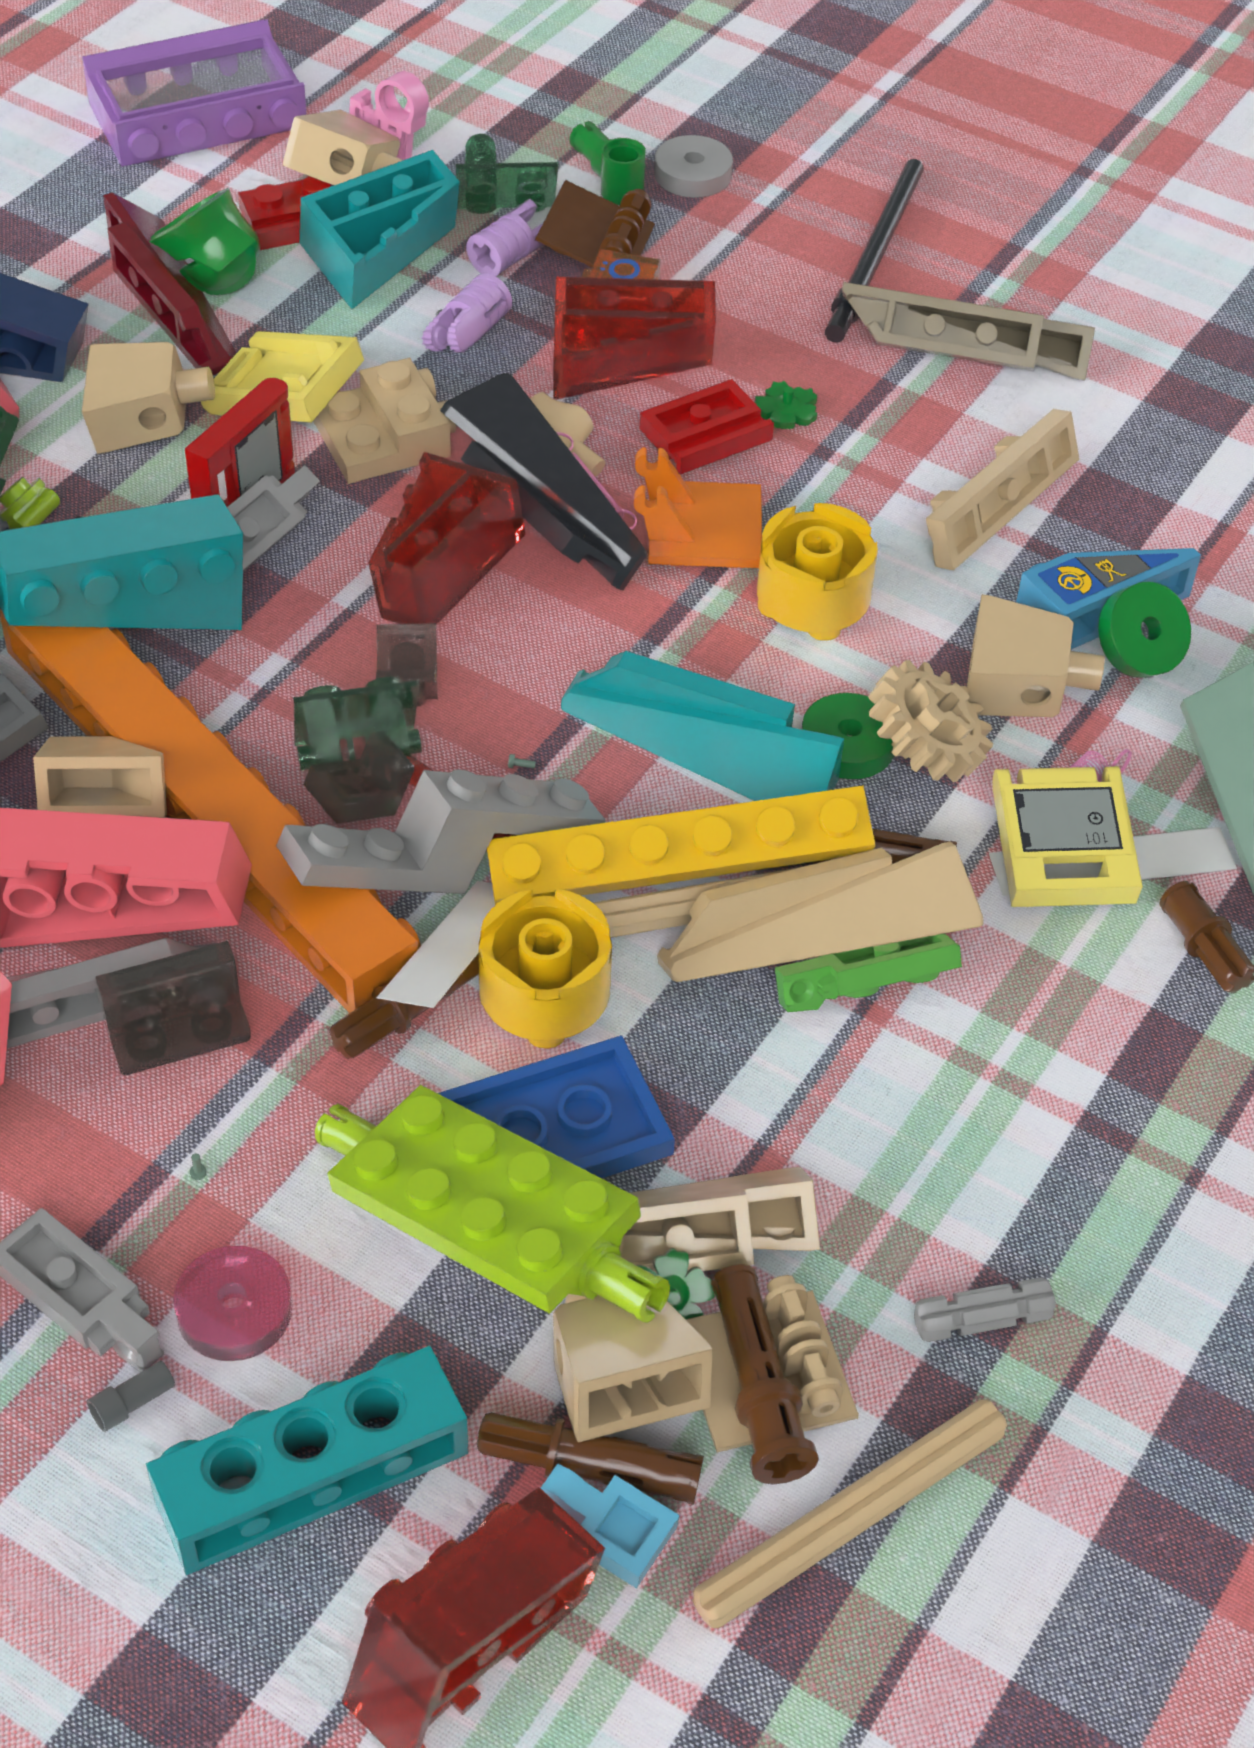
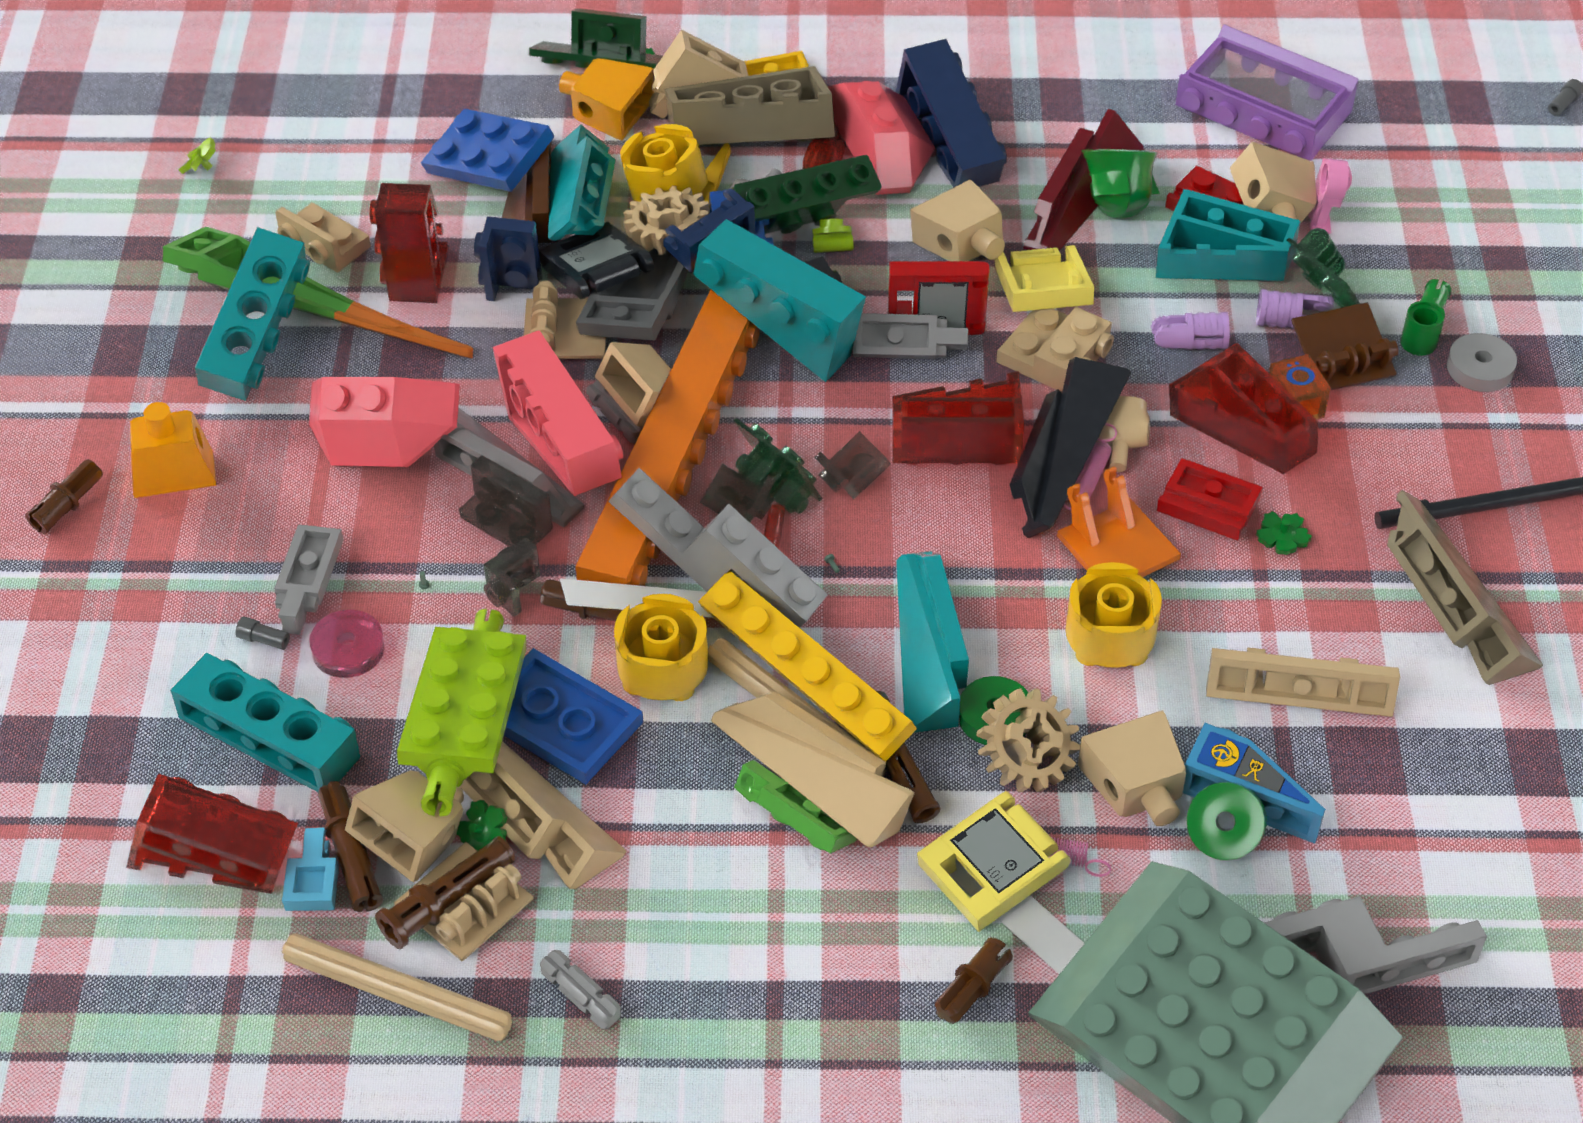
camera: 60 degrees right, 0 degrees up
(292, 1081) = (510, 572): none -> clear smoke bracket

